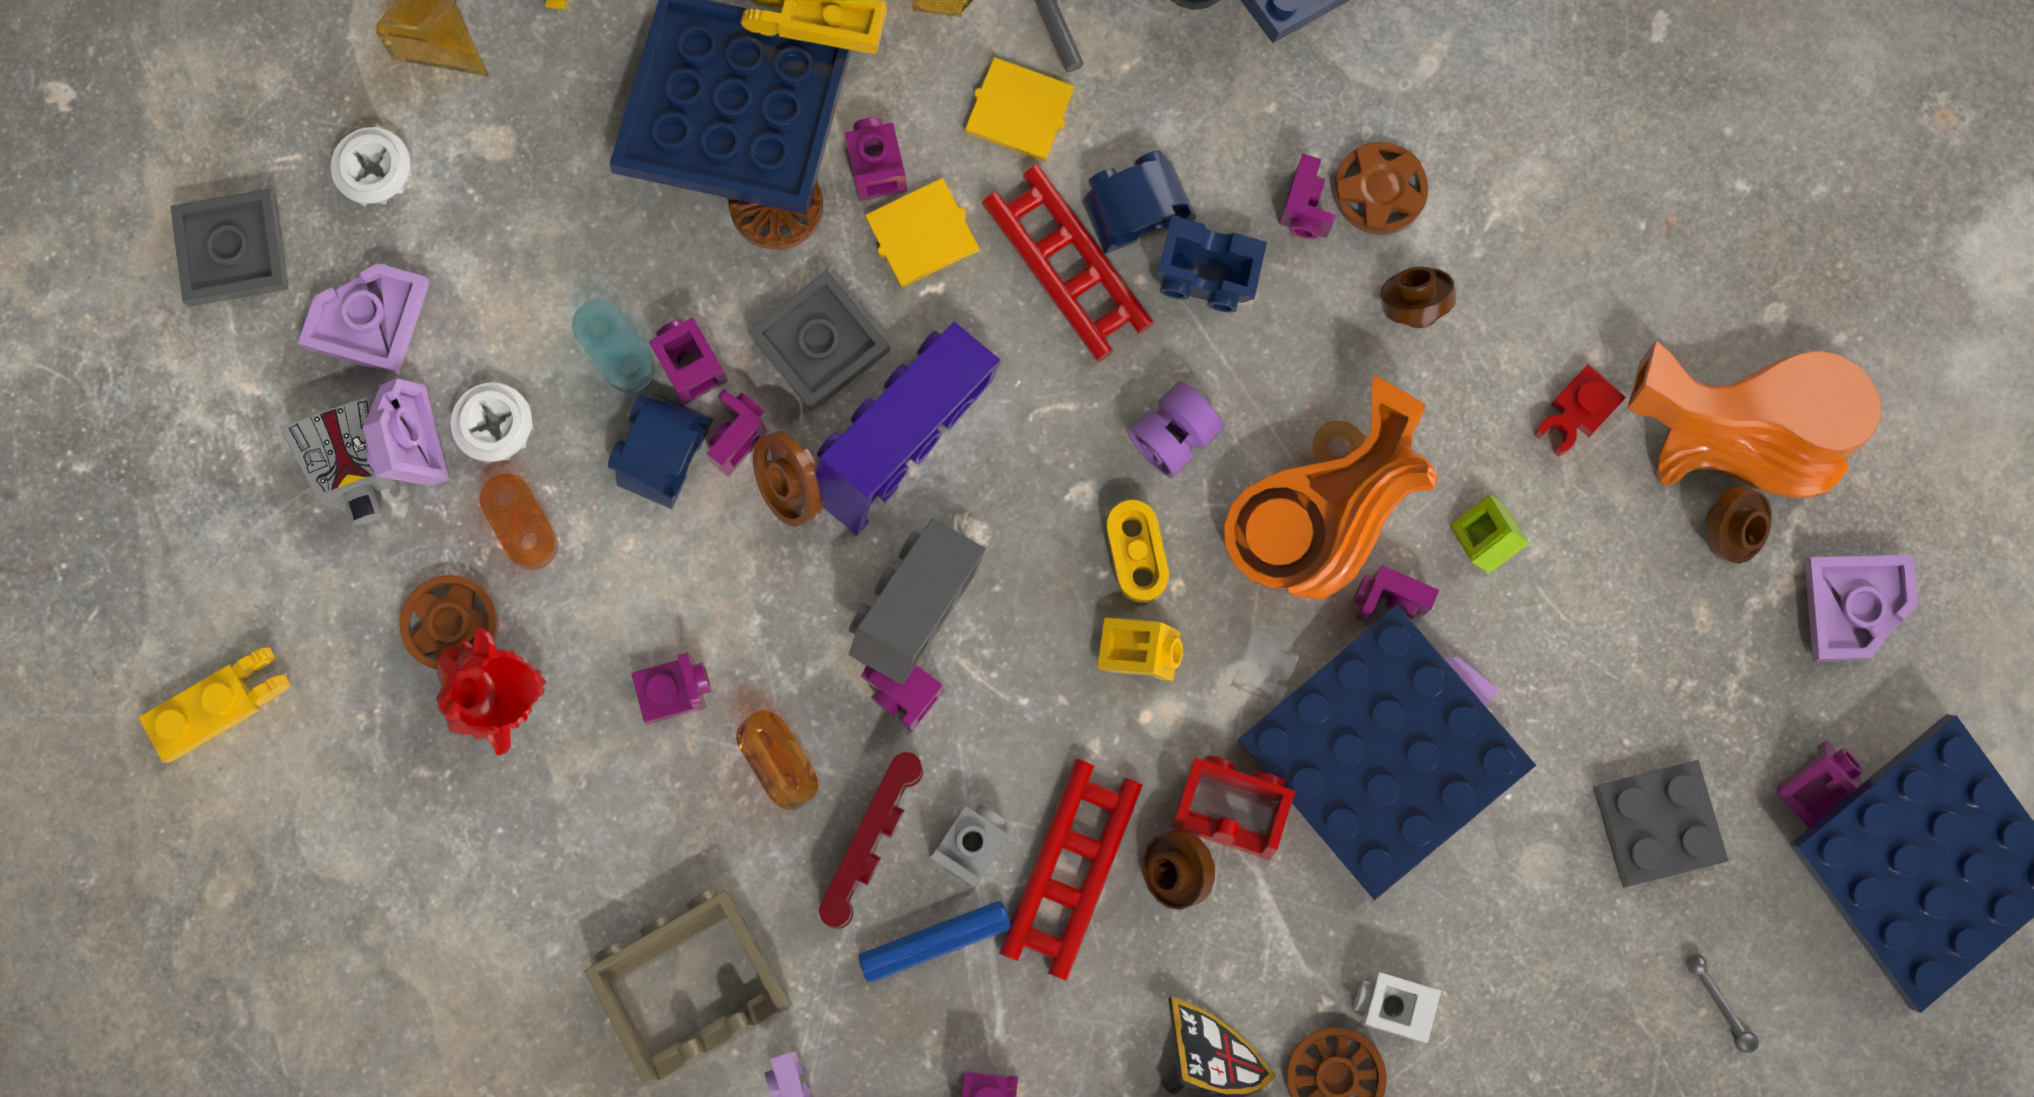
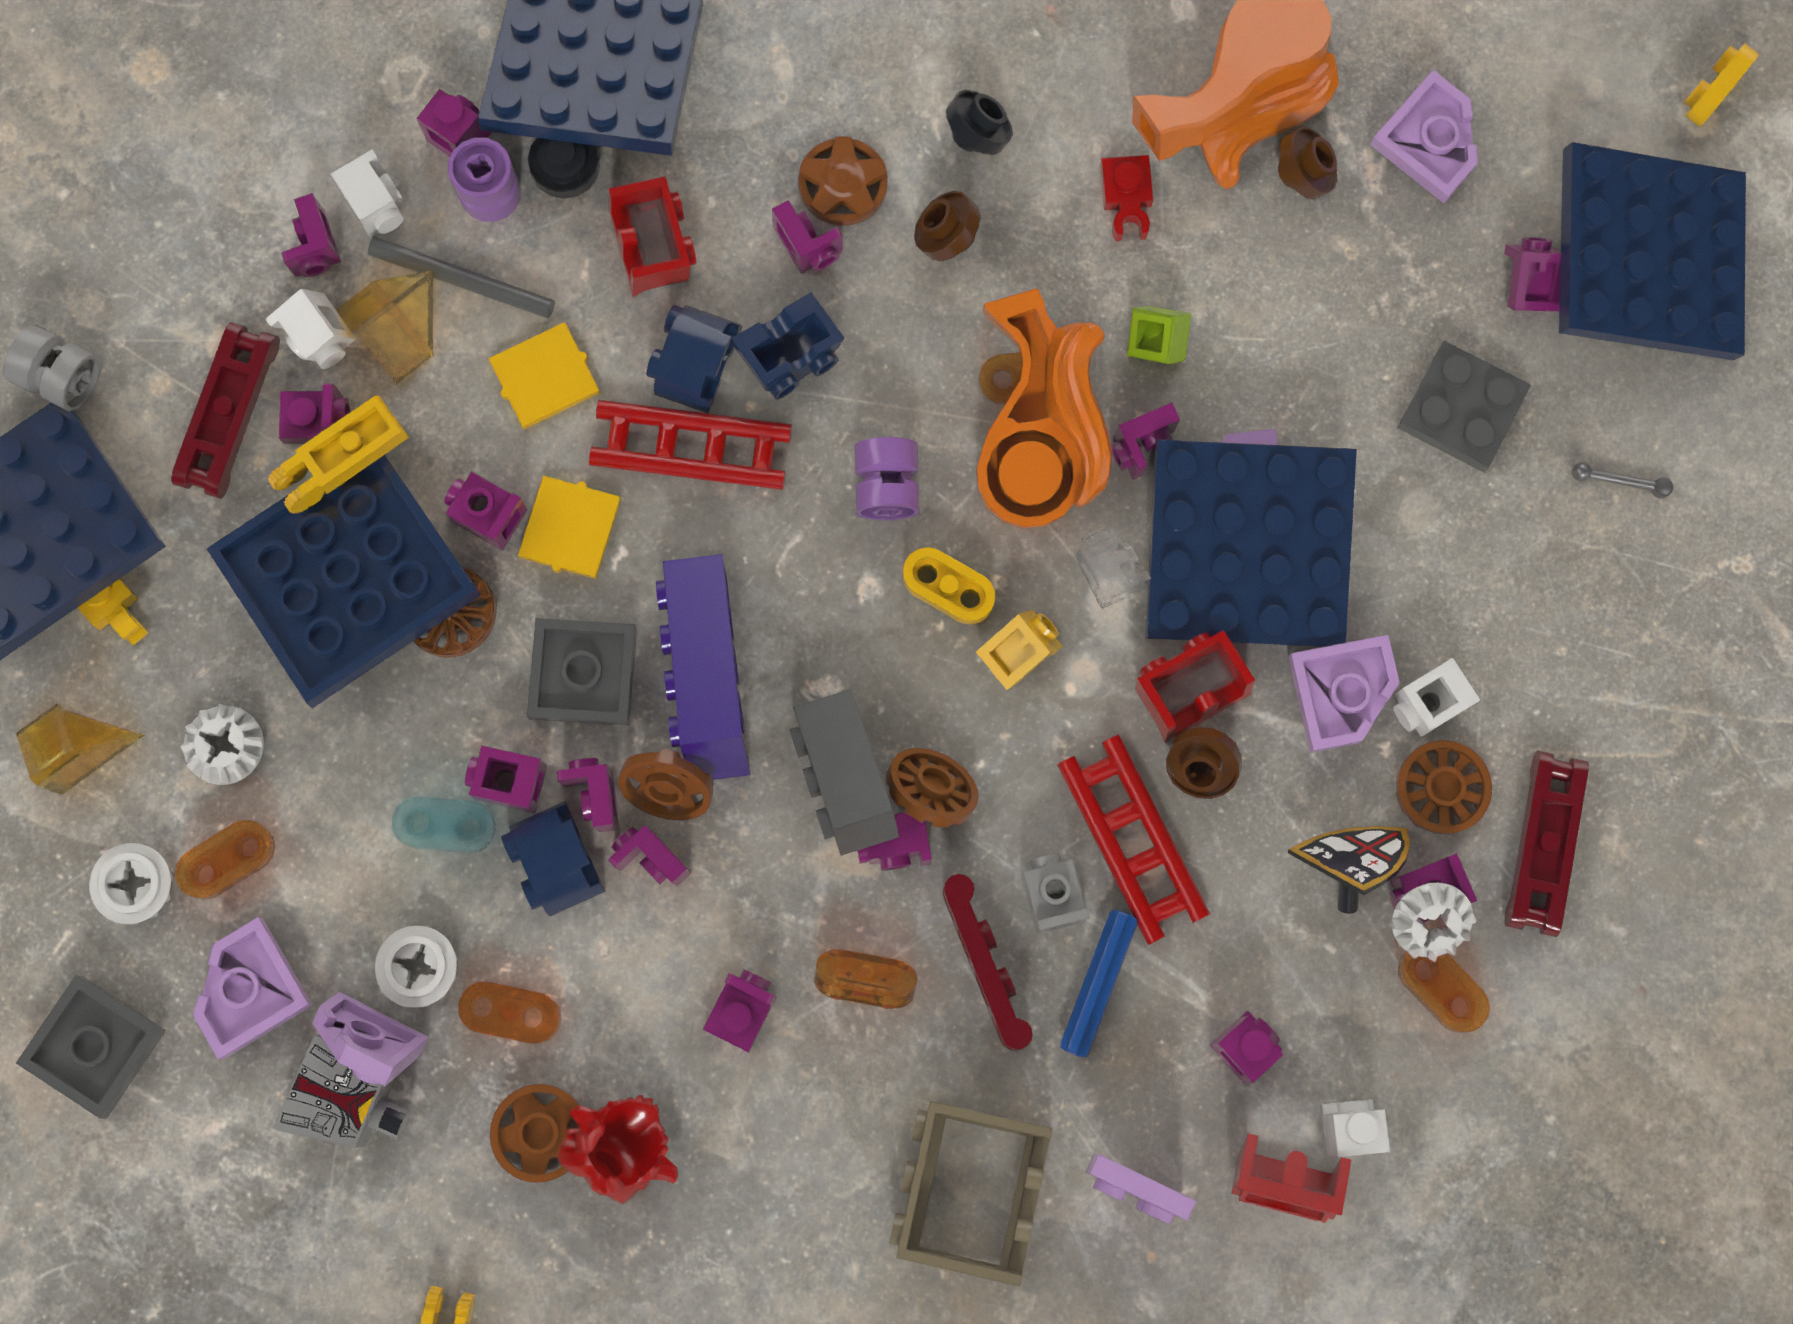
camera: 50 degrees left, 0 degrees up
(449, 217) = (226, 858): none -> clear orange plate
(550, 144) = (226, 767): none -> white gear
(729, 525) = (658, 861): none -> magenta bracket
(968, 677) = (949, 798): none -> dark orange wheel
(1198, 84) = (650, 235): none -> red window
(1339, 928) = (1343, 690): none -> lavender plate
(1524, 245) = (978, 123): none -> black plate

